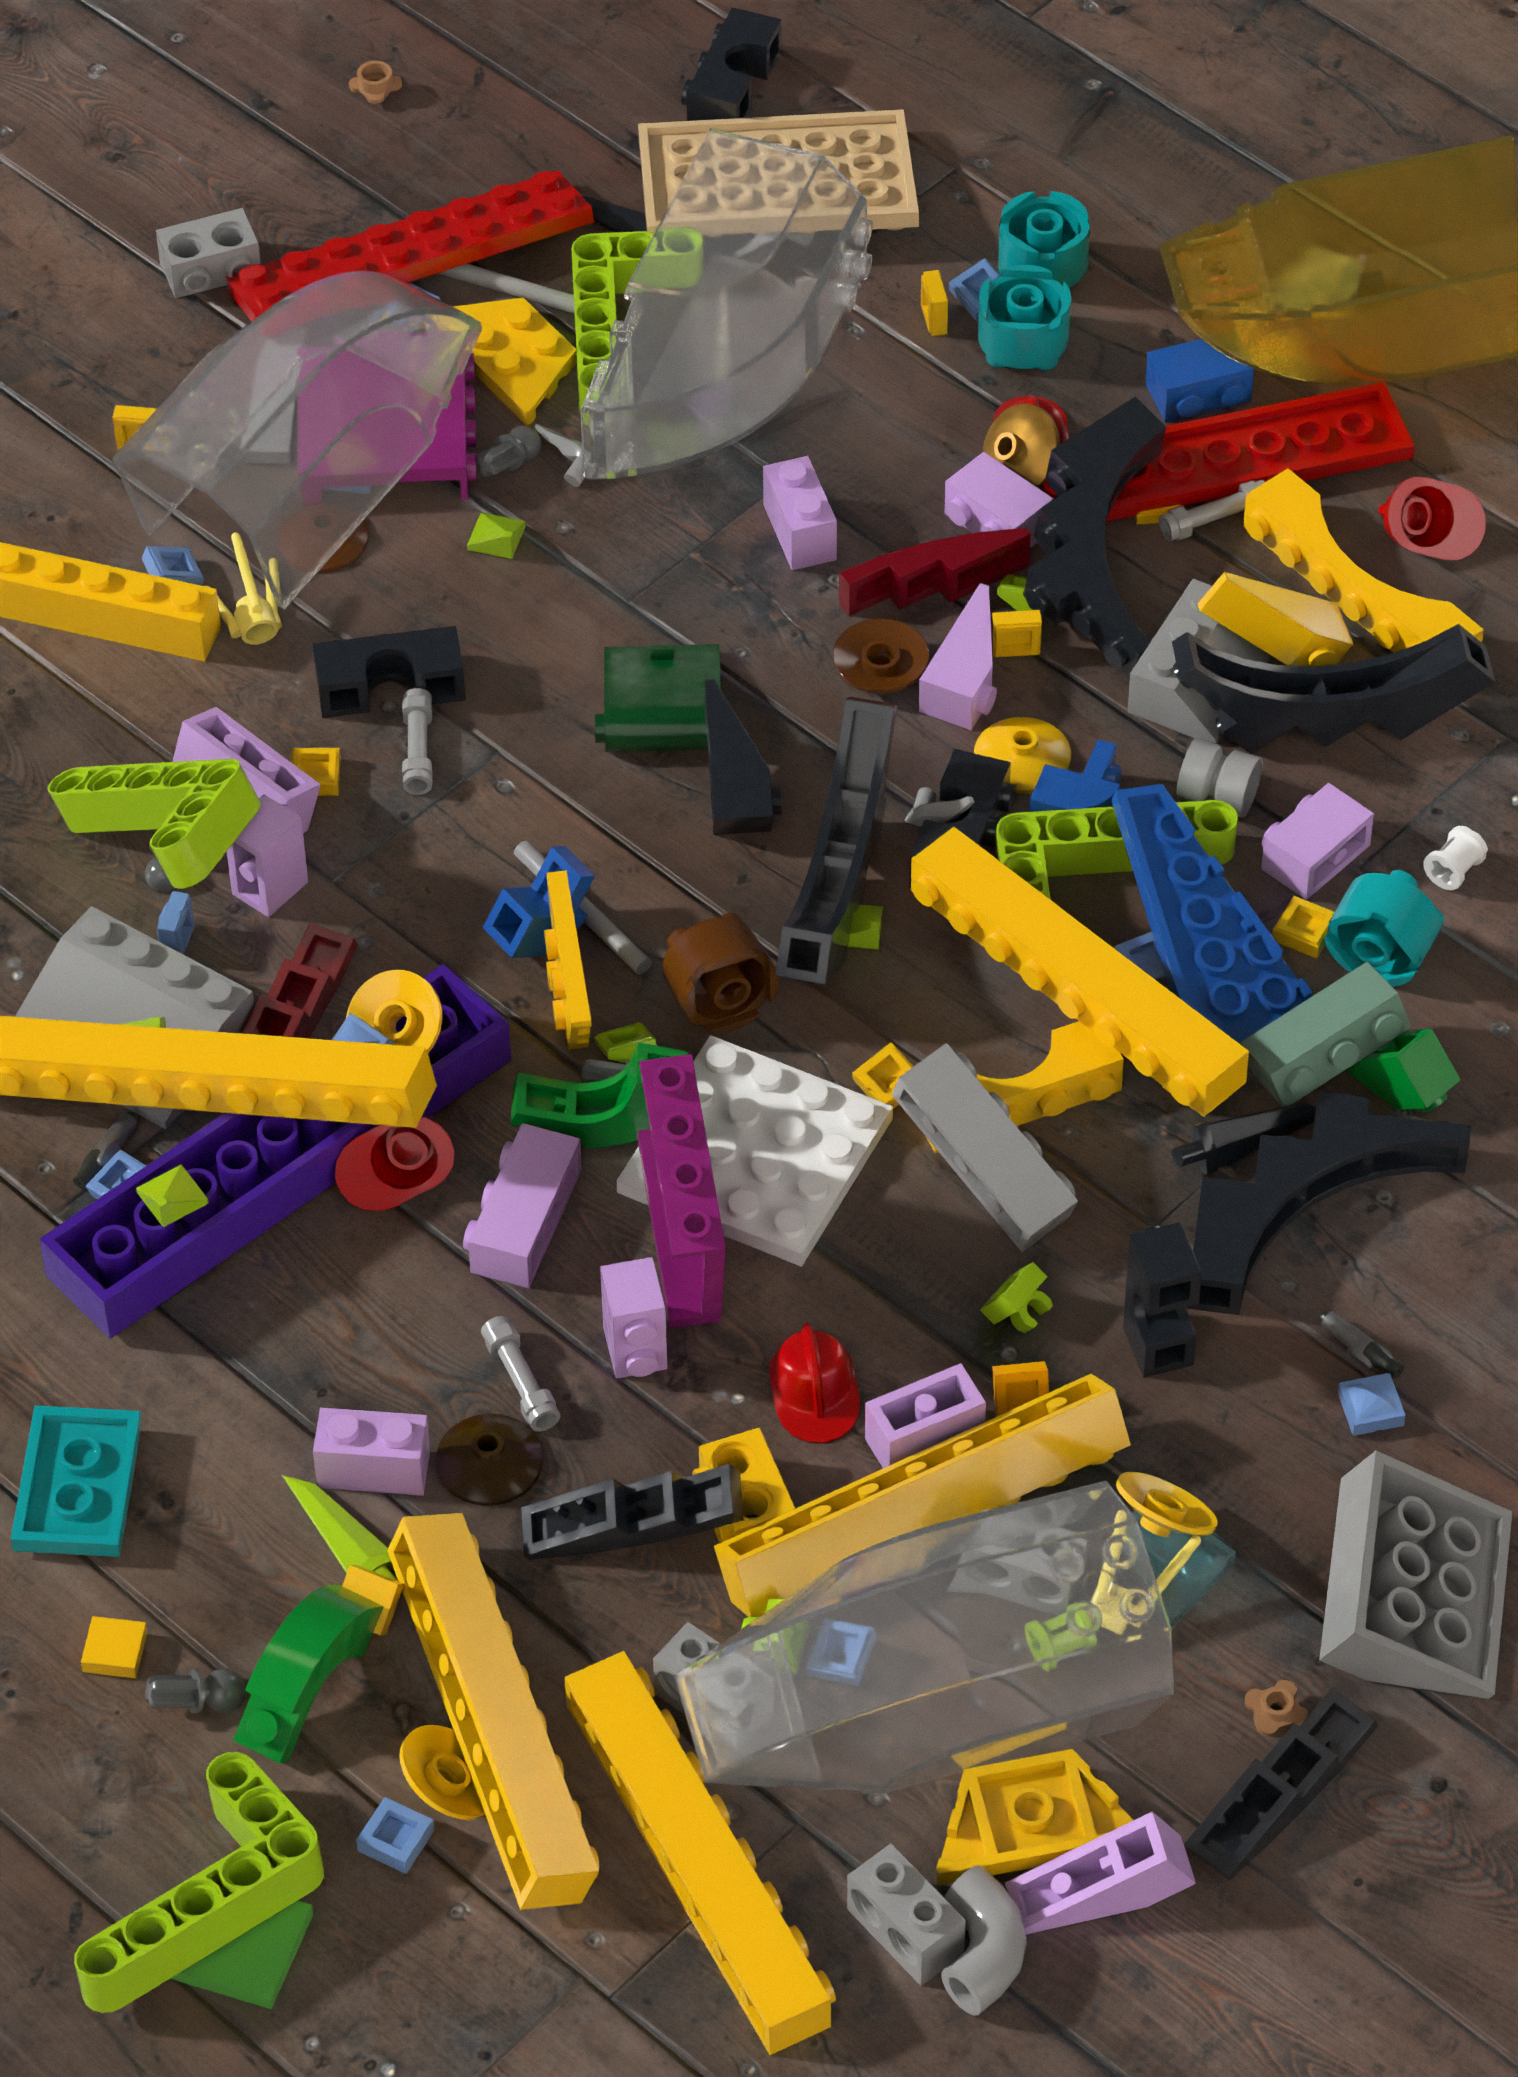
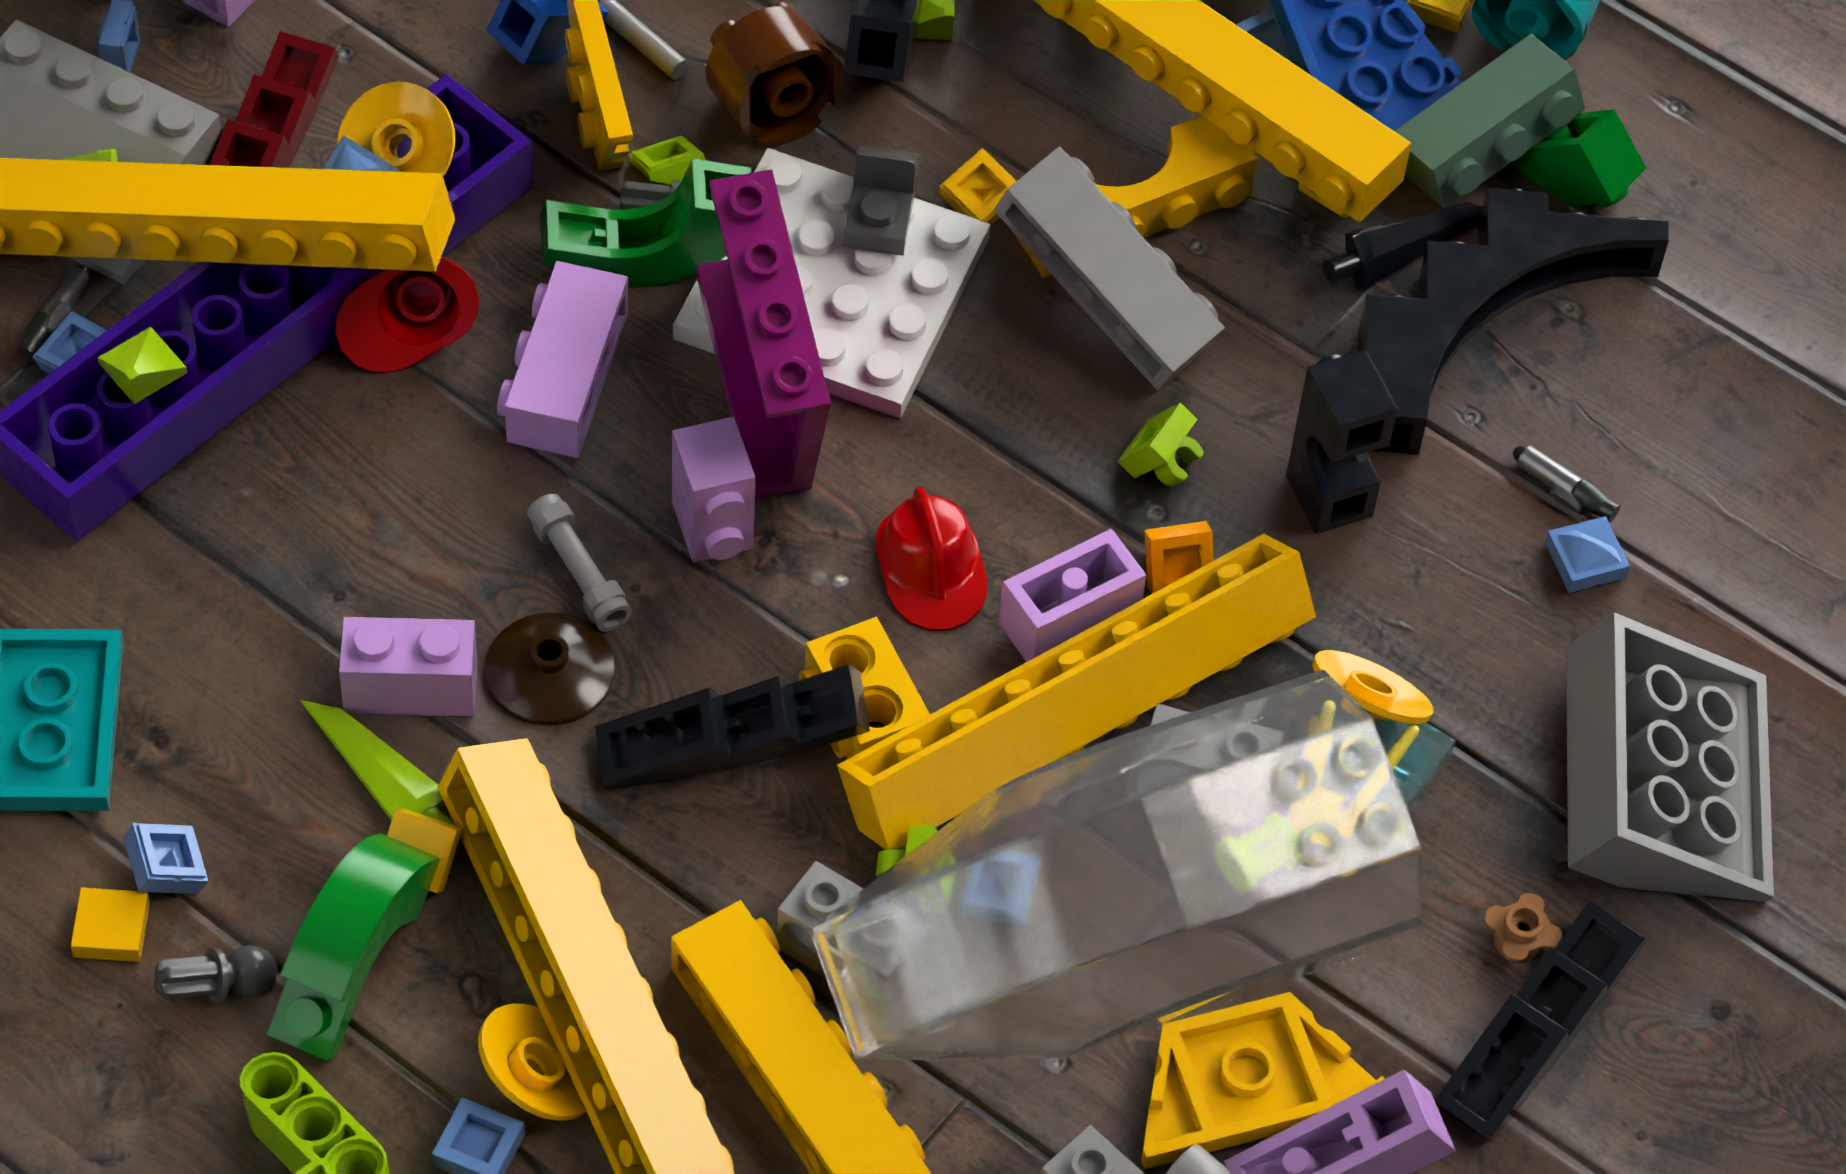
camera: 10 degrees left, 5 degrees up
(162, 1596) = (165, 858): none -> medium blue tile
(800, 1082) = (881, 200): none -> dark grey slope

